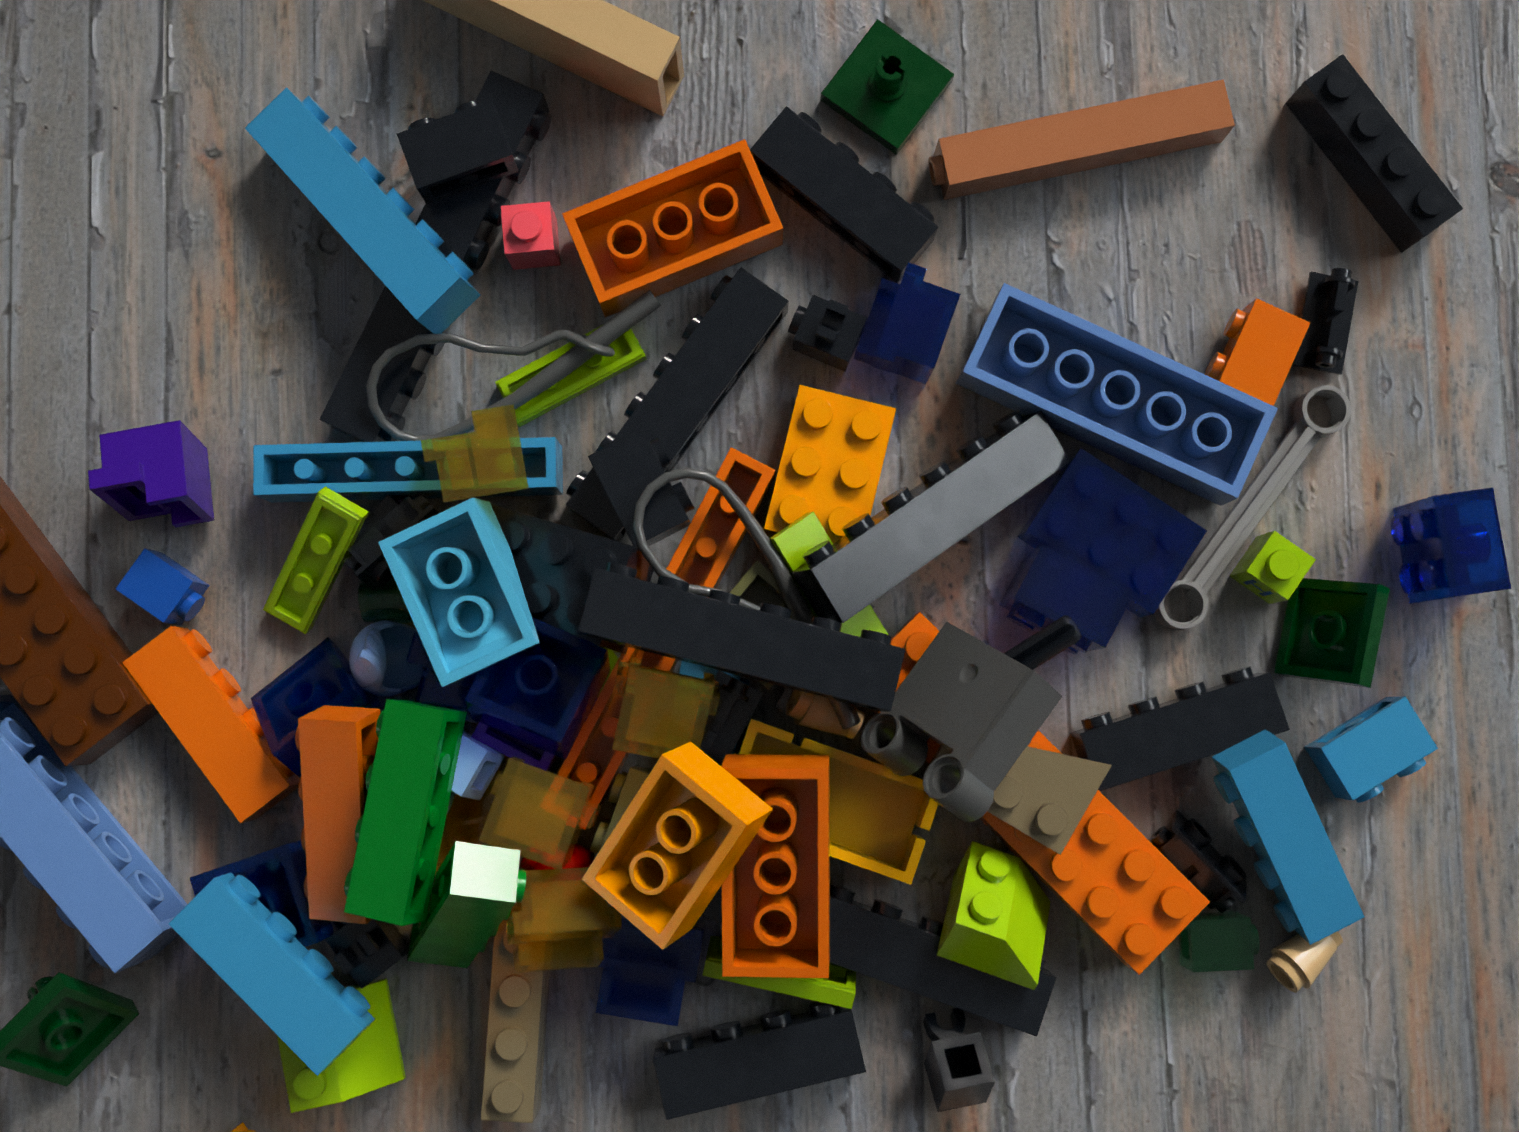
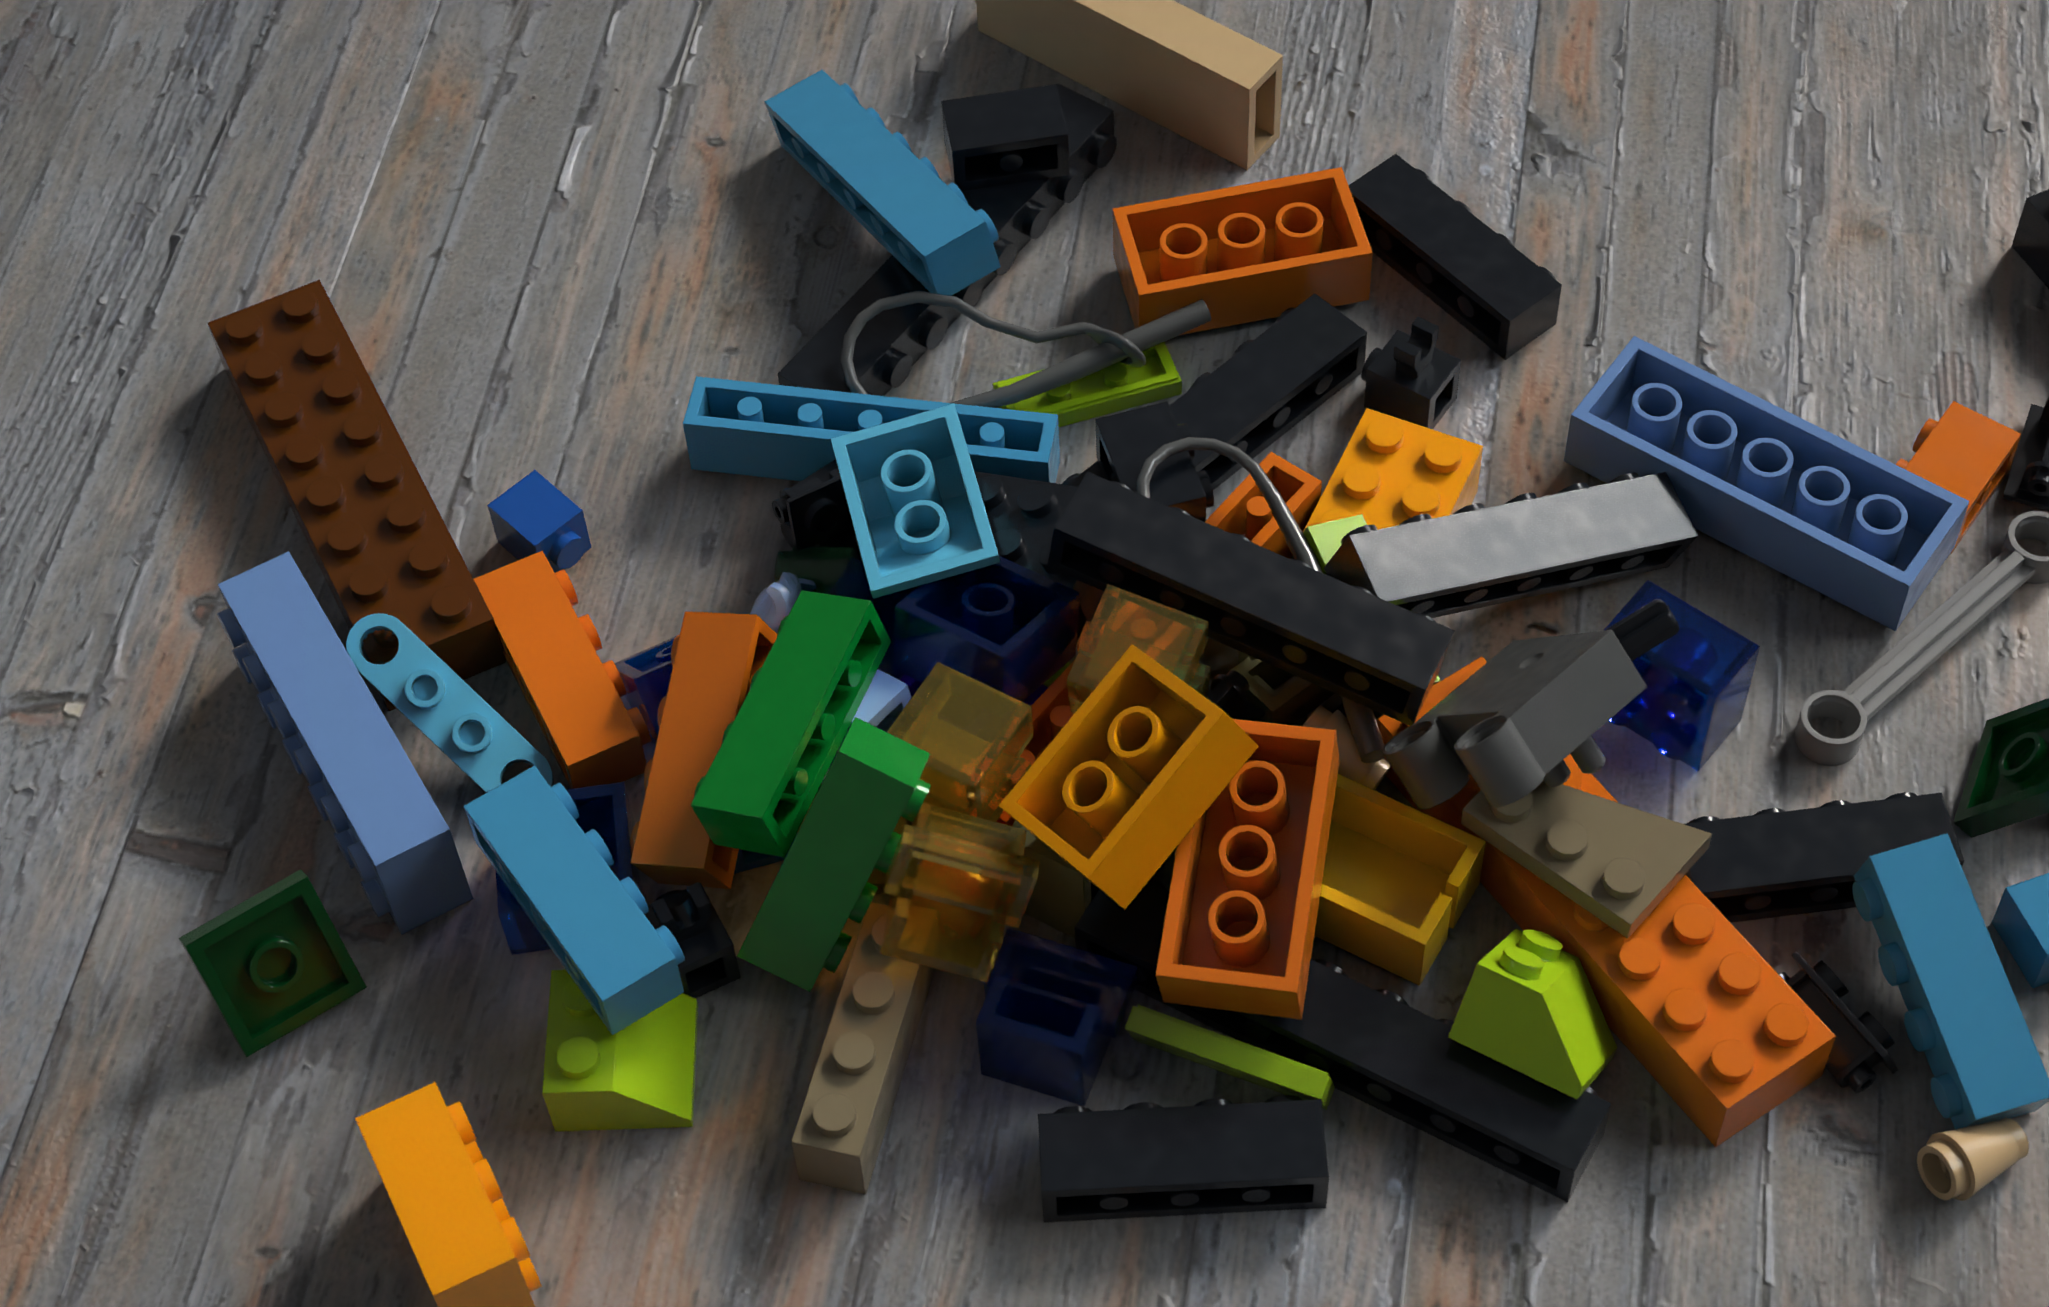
camera: 15 degrees right, 30 degrees down
(134, 788) = (443, 705): none -> medium azure plate
(155, 474) = (566, 404): dark purple plate -> none
(315, 560) = (733, 513): lime tile -> none
(482, 460) = (977, 374): clear yellow plate -> none
(530, 235) = (1068, 245): coral brick -> none
(886, 87) = (1520, 170): dark green tile -> none
(907, 325) = (1513, 382): clear blue plate -> none
(956, 1064) = (1459, 1205): black brick -> none
(1081, 140) = (1750, 238): nougat brick -> none
(1114, 530) = (1801, 630): clear blue brick -> none
(1219, 943) = (1846, 1115): clear green brick -> none
(1272, 567) = (1955, 692): lime brick -> none

